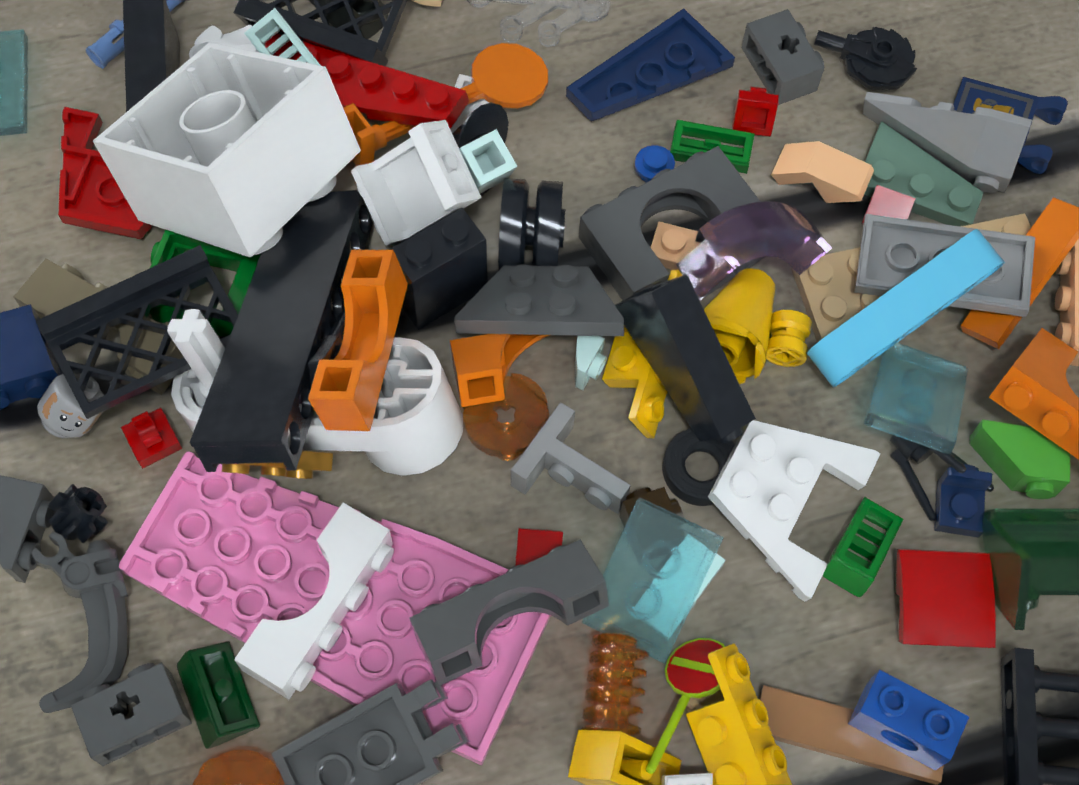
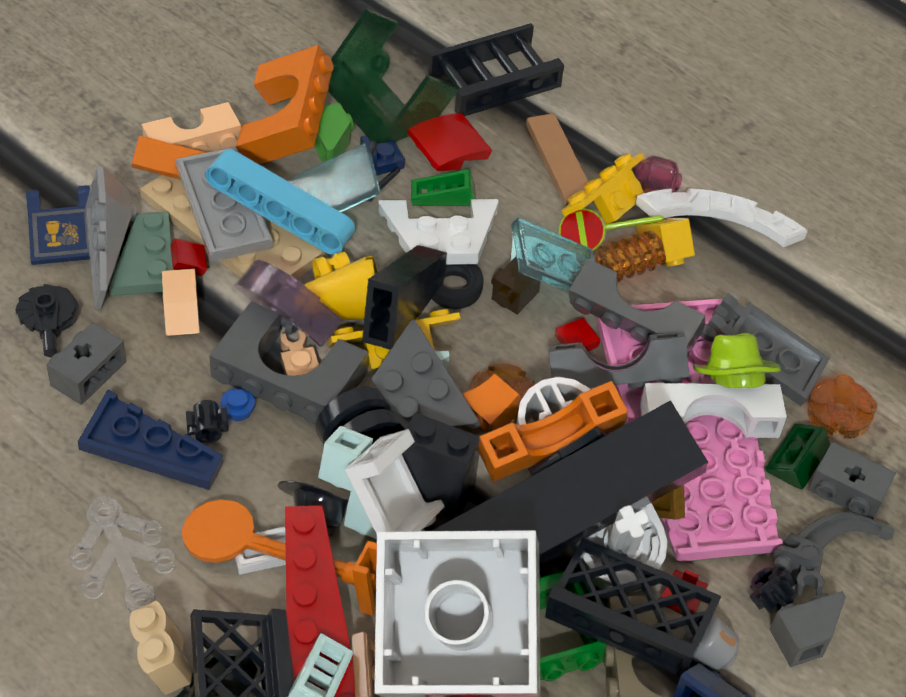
camera: 125 degrees left, 15 degrees down
(334, 648) = (737, 362): none -> lime hat
(413, 568) = (661, 359): none -> dark grey arch
(567, 465) = (514, 350): light grey bracket -> none
(641, 119) = (207, 421): none -> black gear
(684, 148) = (187, 398): green tile -> none
(755, 111) = (148, 360): red tile -> none
(908, 720) = (540, 125): blue brick -> none

